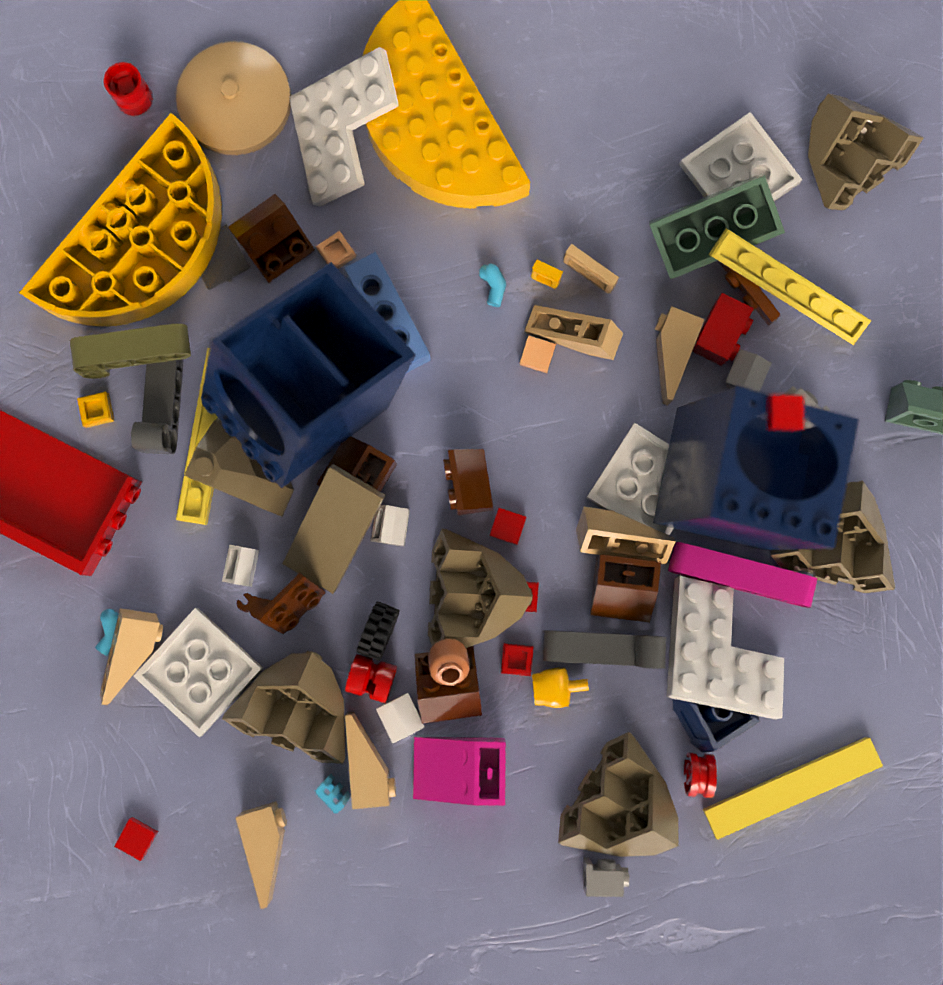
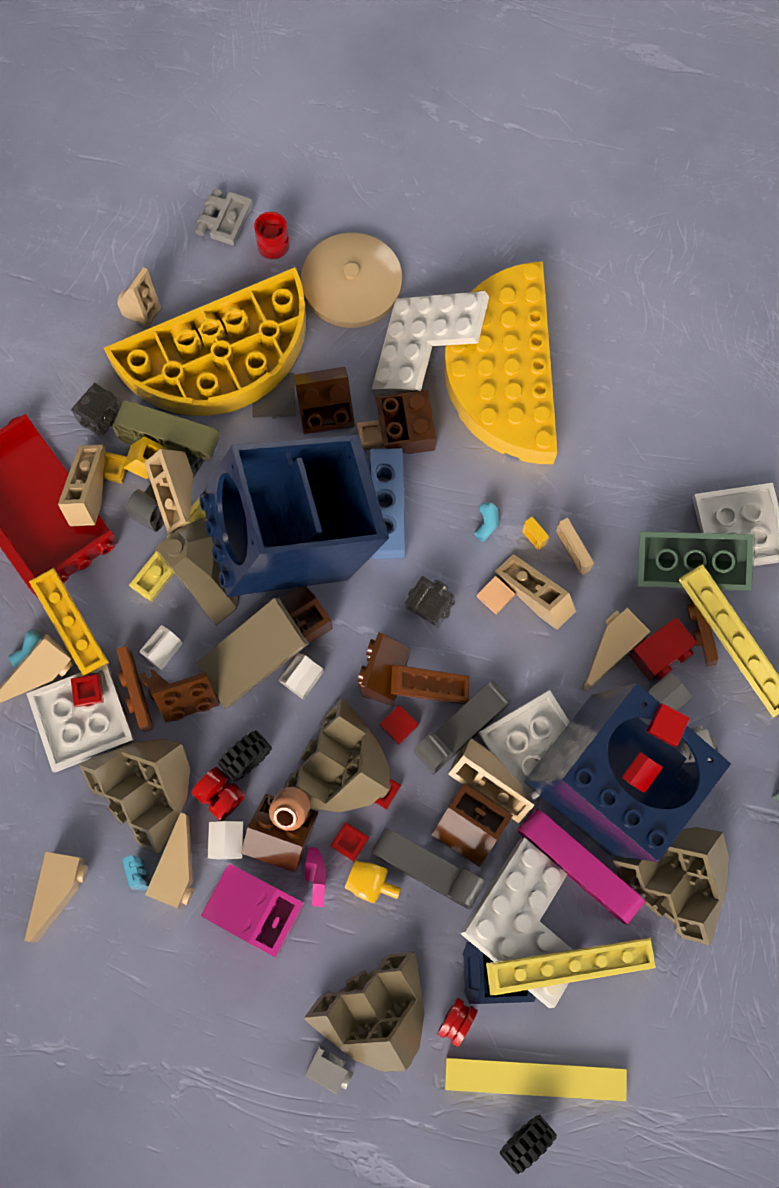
camera: 25 degrees right, 10 degrees down
(28, 223) = (140, 300): none -> tan slope
(47, 359) = (97, 409): none -> clear smoke head
(76, 91) = (230, 219): none -> light grey plate
(77, 445) = (84, 486): none -> tan slope
(123, 385) = (139, 453): none -> yellow brick
(136, 587) = (69, 622): none -> yellow tile
(168, 403) = (172, 486): none -> tan slope
(191, 644) = (87, 690): none -> red tile
(244, 629) = (136, 701): none -> dark orange plate
(366, 221) = (407, 422): none -> reddish brown slope
(479, 391) = (430, 601): none -> clear smoke head
(499, 703) = (316, 872): none -> dark pink slope
(519, 474) = (429, 684): none -> dark orange plate
(569, 499) = (452, 736): none -> dark grey beam
(779, 674) = (570, 966): none -> light yellow tile
(781, 471) = (642, 772): none -> red tile
(816, 851) = (528, 1144): none -> black tyre

